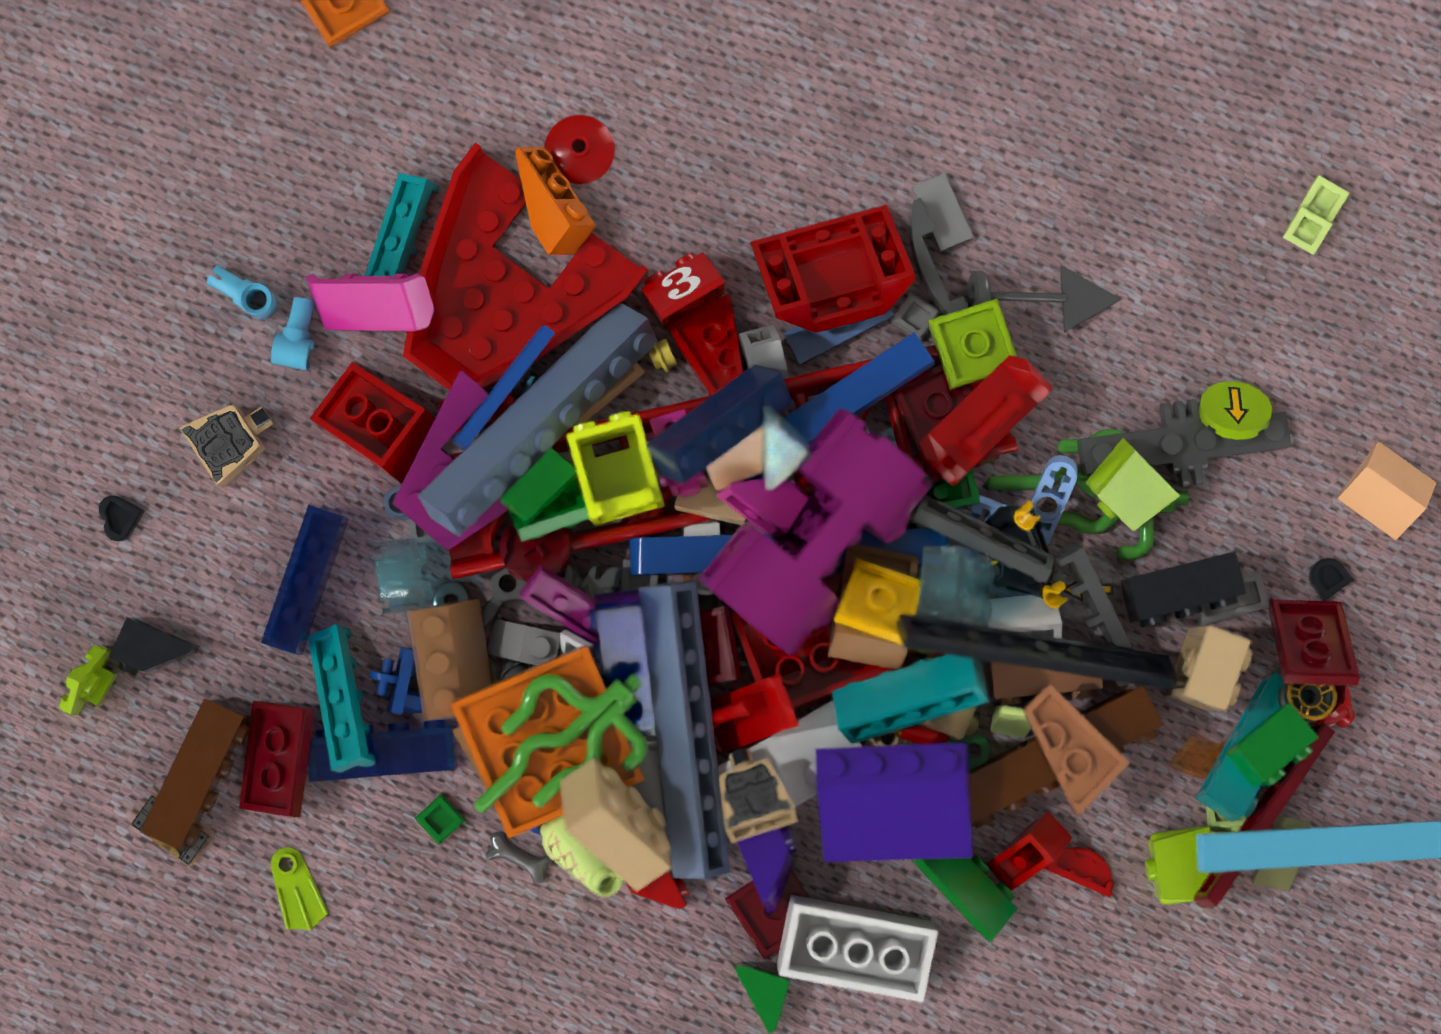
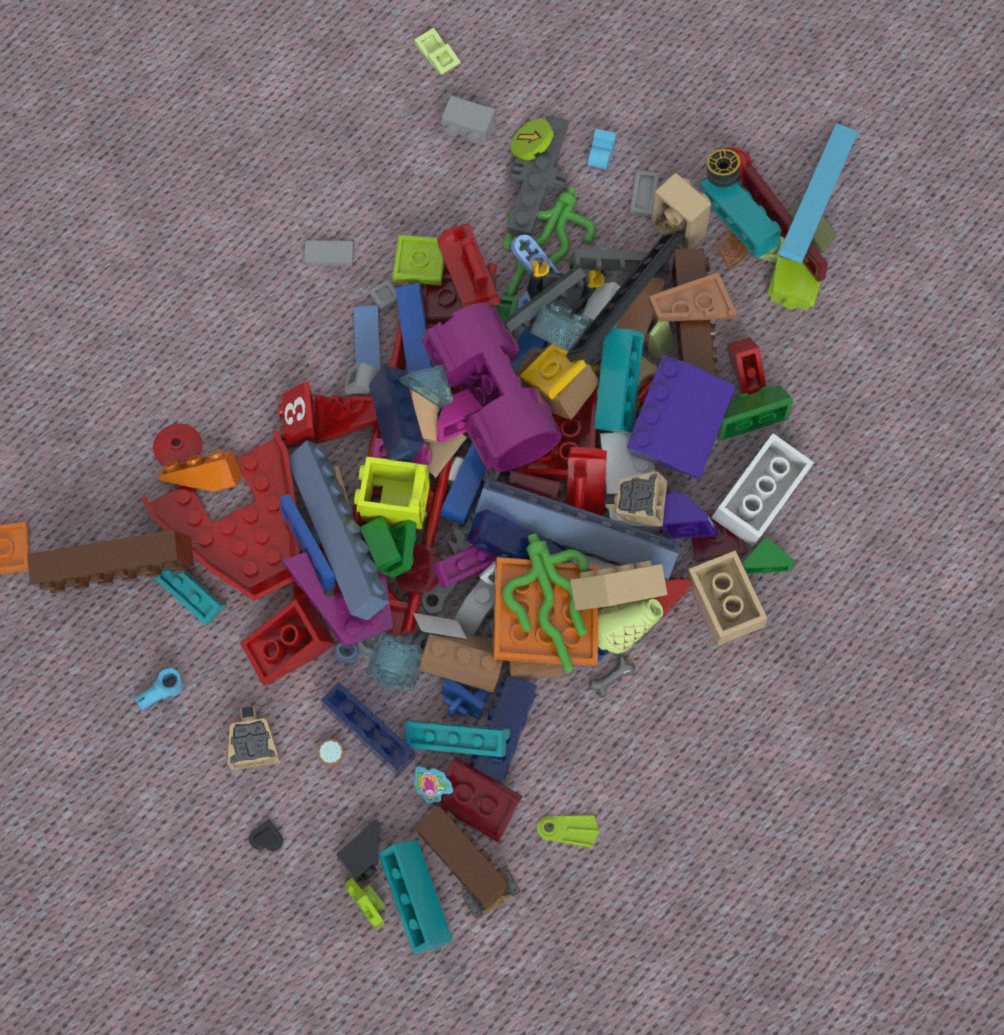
camera: 60 degrees left, 15 degrees down
(119, 740) = (415, 897): none -> teal brick
(261, 545) = (330, 752): none -> light aqua tile
(272, 693) = (431, 784): none -> sticker
(294, 344) = (209, 672): medium azure pin -> none
(368, 149) = (110, 561): none -> reddish brown brick
(372, 302) = (209, 607): dark pink piece -> none
(440, 819) = (564, 715): green tile -> none
(473, 610) = (439, 625): none -> white sticker
(662, 355) = (334, 449): light yellow plate -> none
(684, 964) = (726, 598): none -> tan brick
(835, 270) = (333, 322): red slope -> none
(920, 229) = (354, 274): dark grey slope -> none
(1078, 296) = (422, 199): dark grey piece -> none
(1084, 868) = (773, 341): red tile -> none
(1130, 487) = (549, 210): lime torso -> none
(1183, 589) = (626, 209): black brick -> none
(1226, 307) = (468, 119): none -> light grey brick
(1266, 512) = (602, 149): none -> medium azure leg
(1272, 745) = (744, 195): green brick -> none
(1313, 642) = (692, 152): dark red tile -> none
(1328, 577) = (657, 135): black tile -> none
(1388, 491) = (621, 82): light nougat slope -> none

